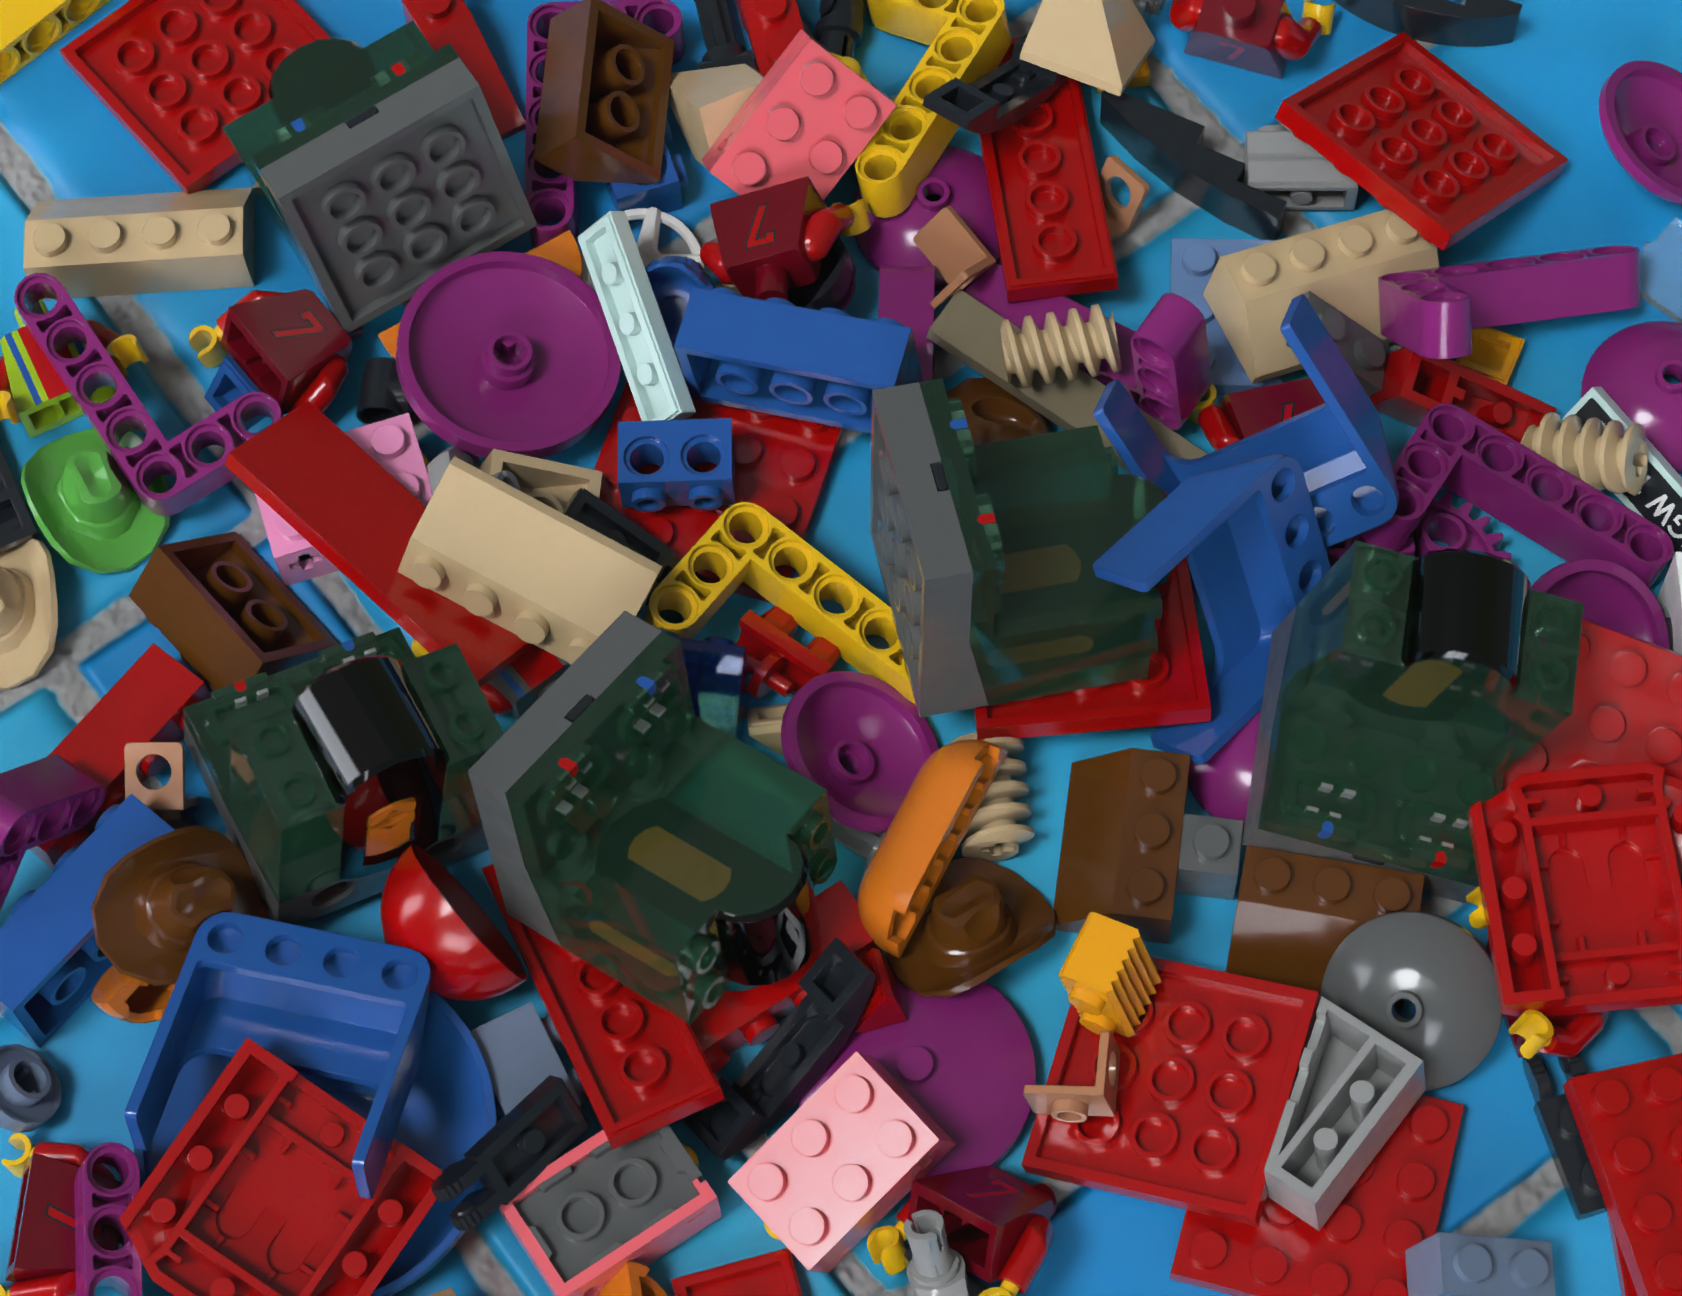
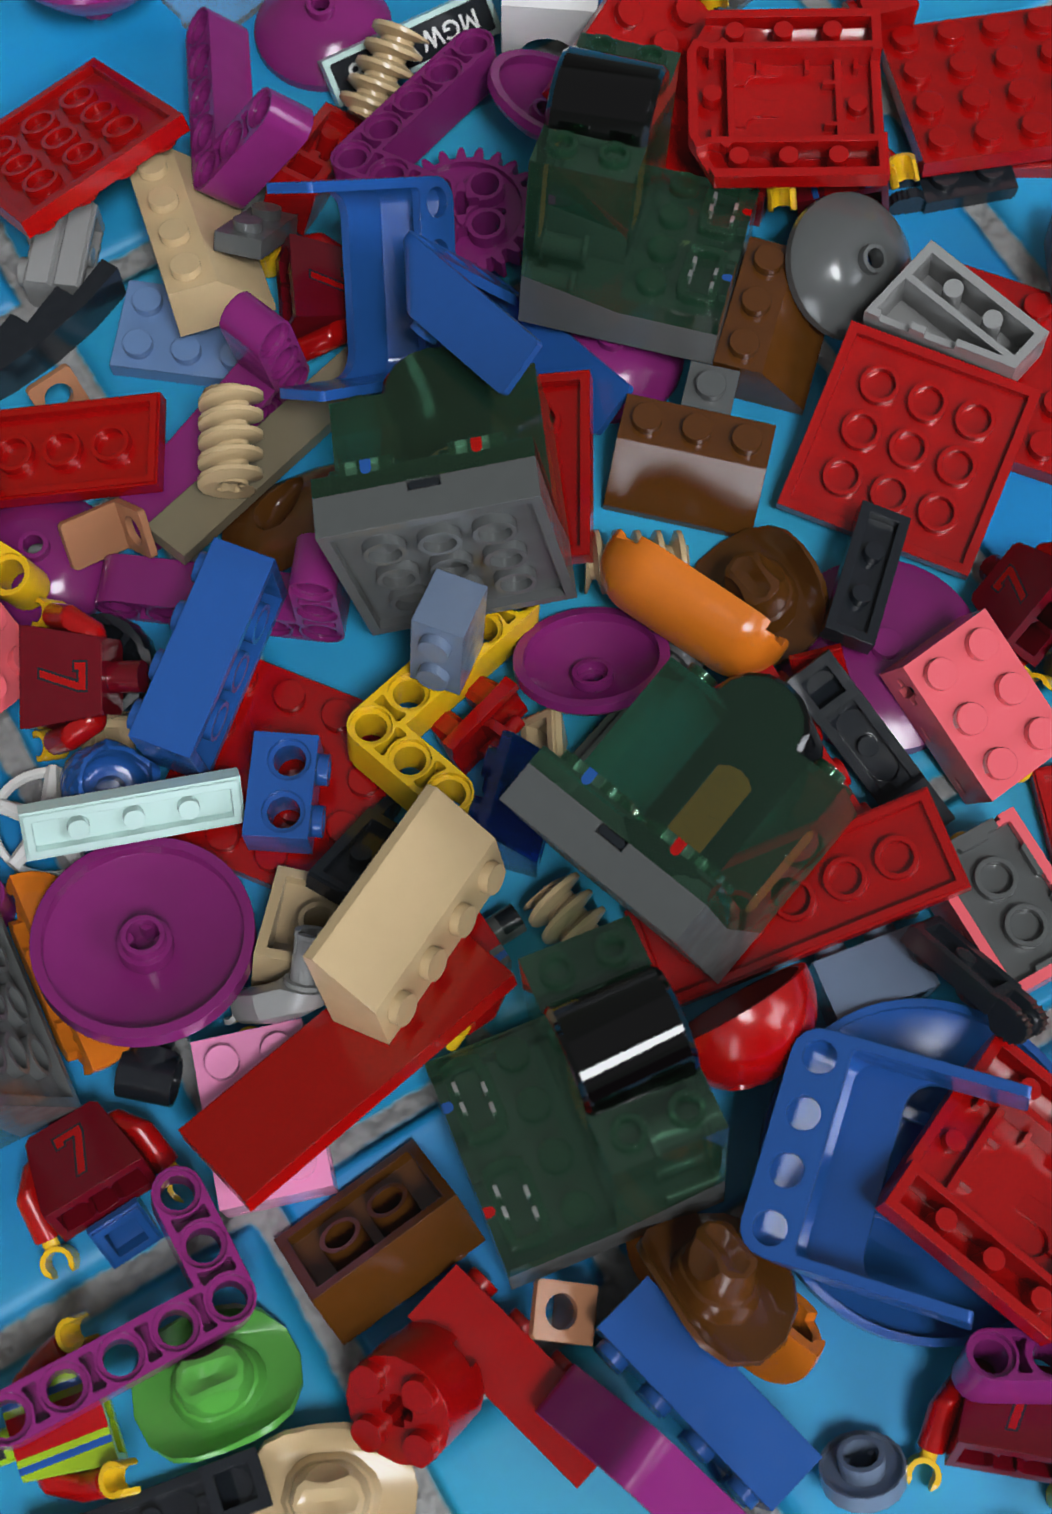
camera: 90 degrees left, 5 degrees up
(77, 653) = (413, 1395): none -> red brick
(839, 572) = (447, 632): none -> sand blue brick
(990, 1031) = (865, 577): none -> black plate
(1076, 1103) = (923, 490): nougat bracket -> none
(1109, 975) = (836, 467): light orange brick -> none

